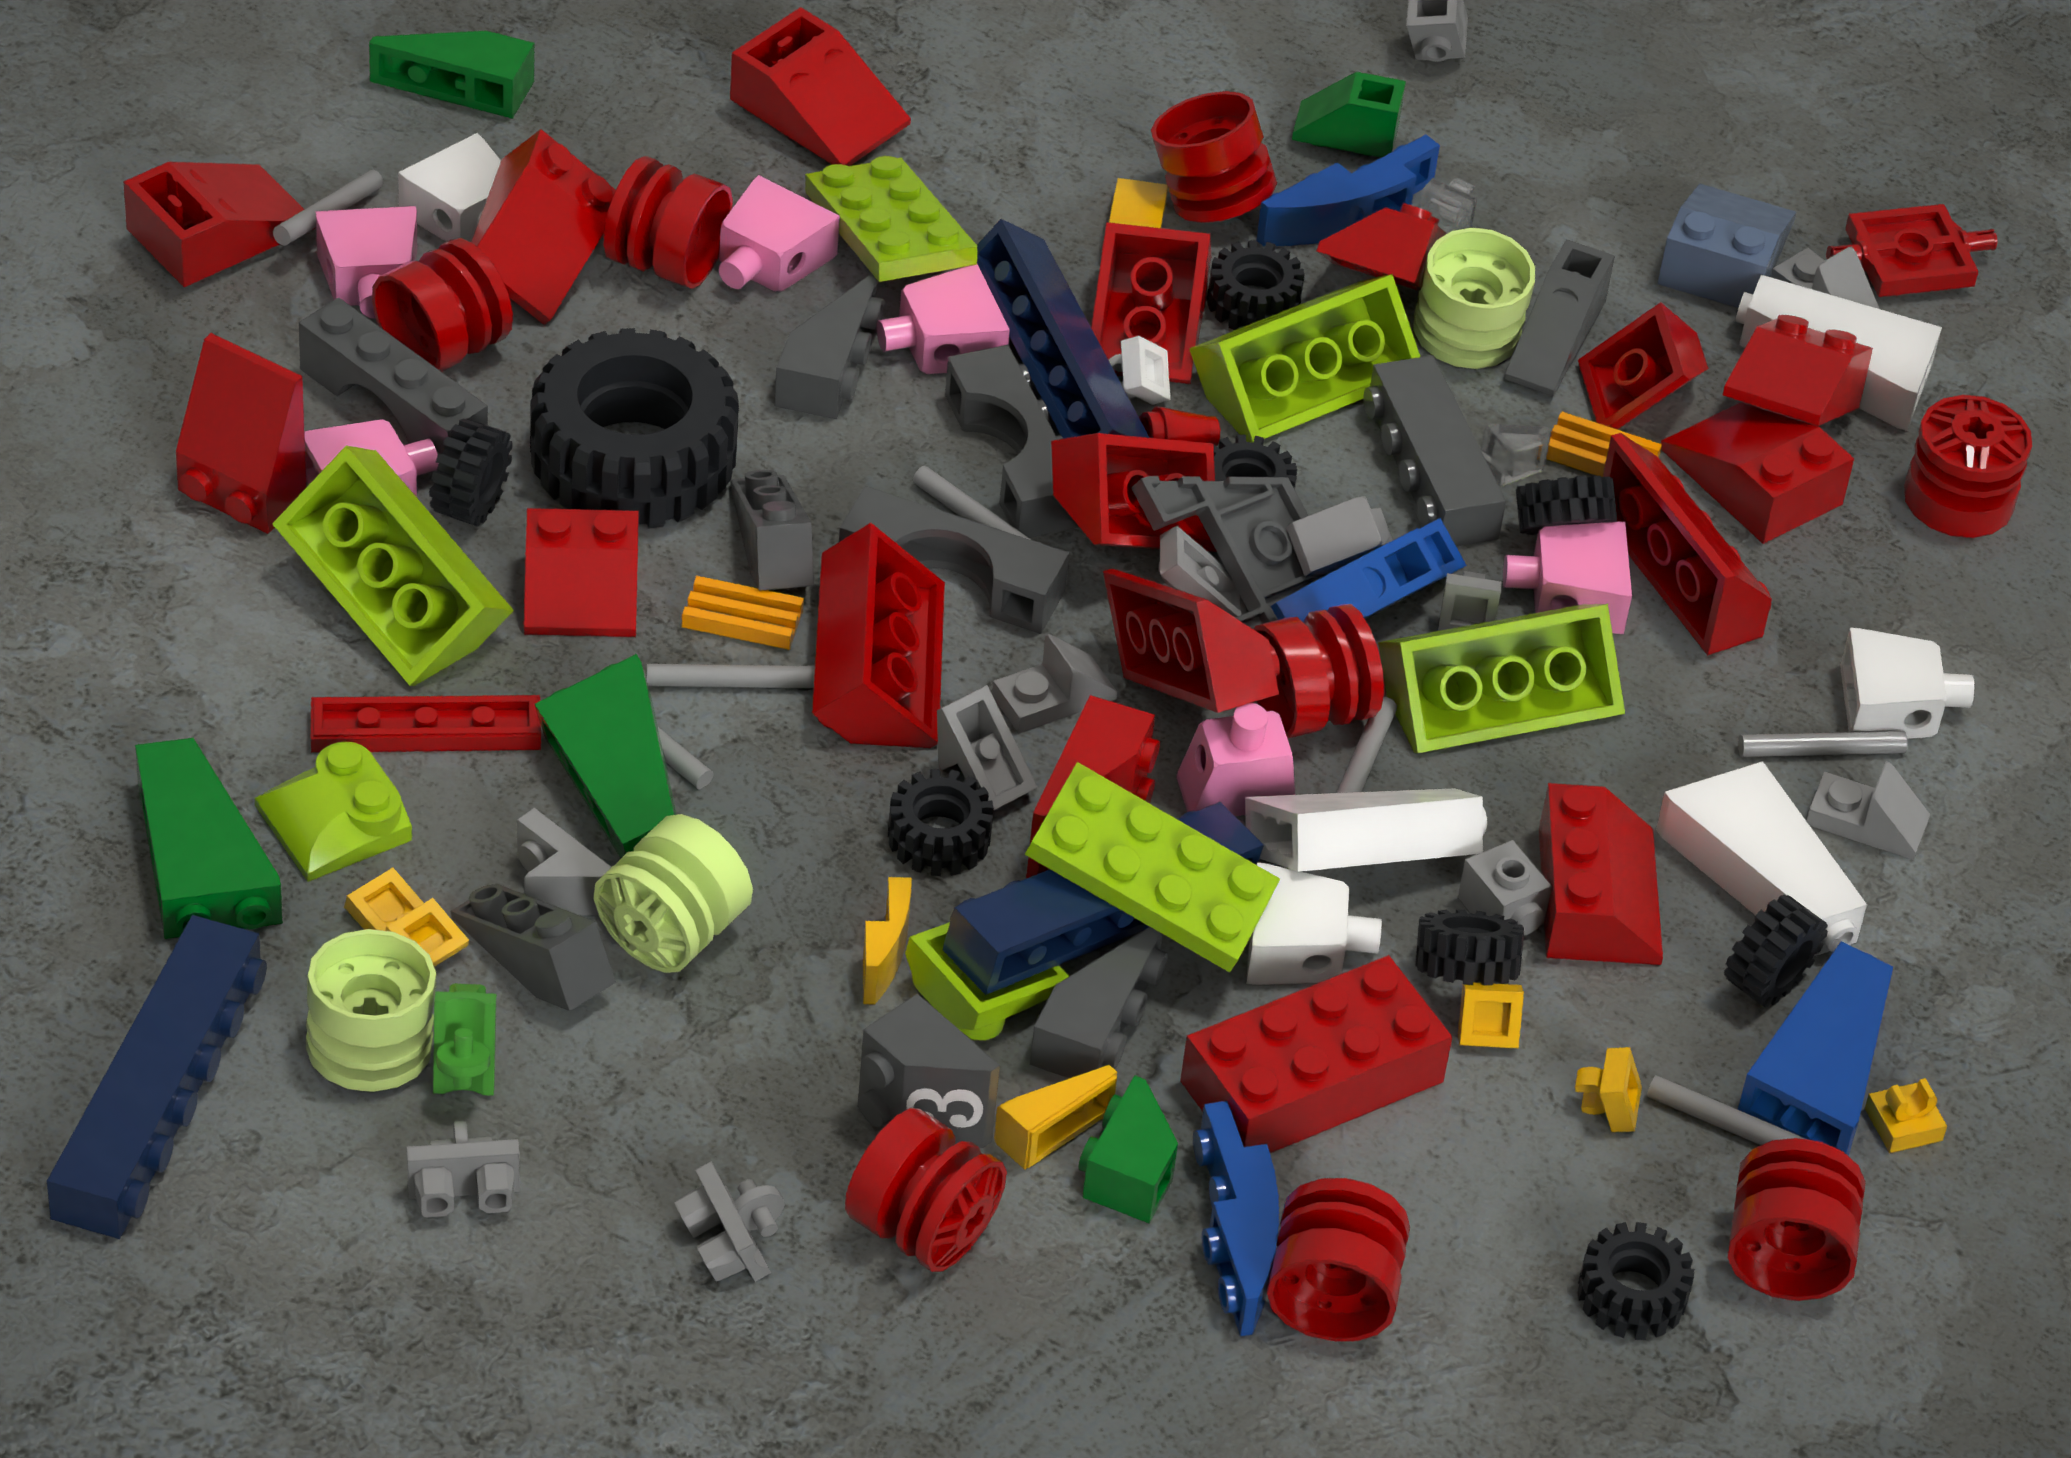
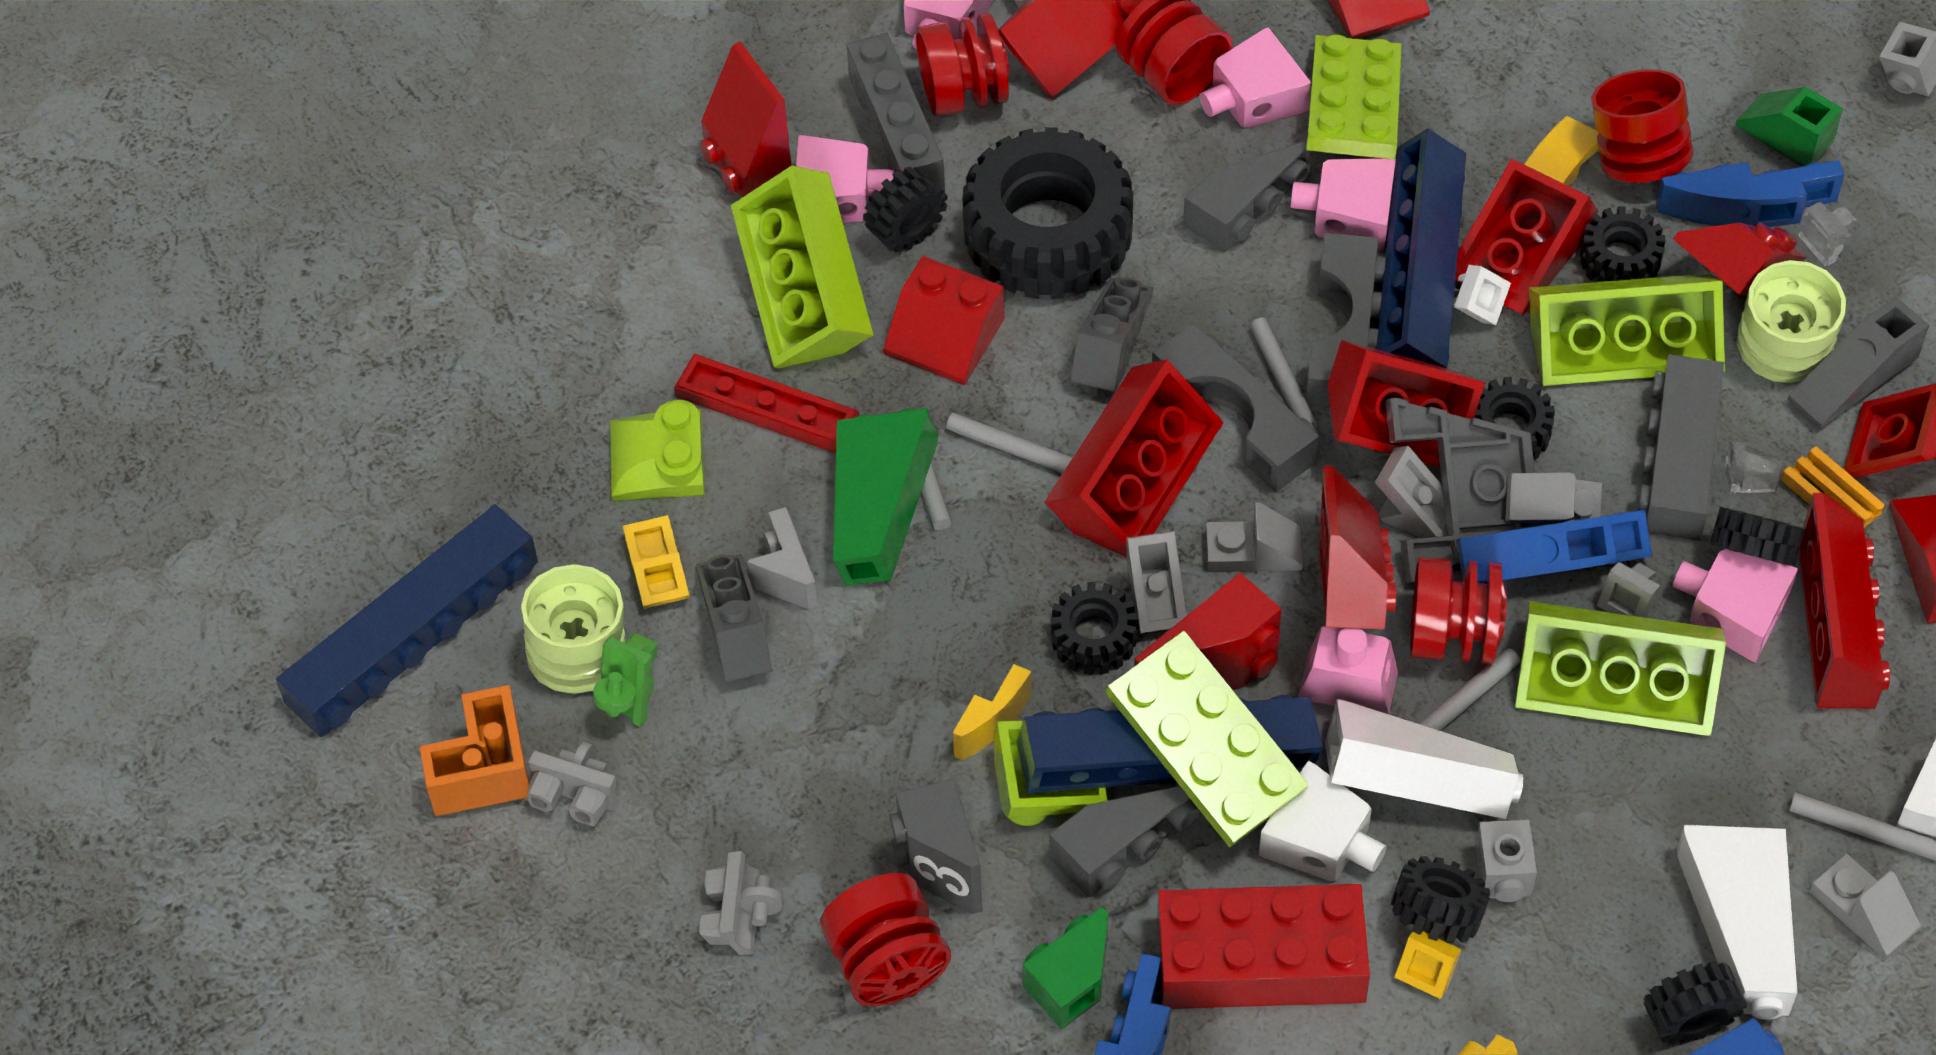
camera: 35 degrees right, 10 degrees up
(200, 844) = (540, 447): green slope -> none
(349, 1177) = (480, 767): none -> orange brick
(673, 893) = (853, 613): yellowish green wheel -> none
(745, 606) = (1057, 389): light orange tile -> none
(1052, 1116) = (1031, 912): yellow slope -> none
(1181, 425) = (1480, 357): red cone -> none
(1600, 878) = (1594, 877): red slope -> none

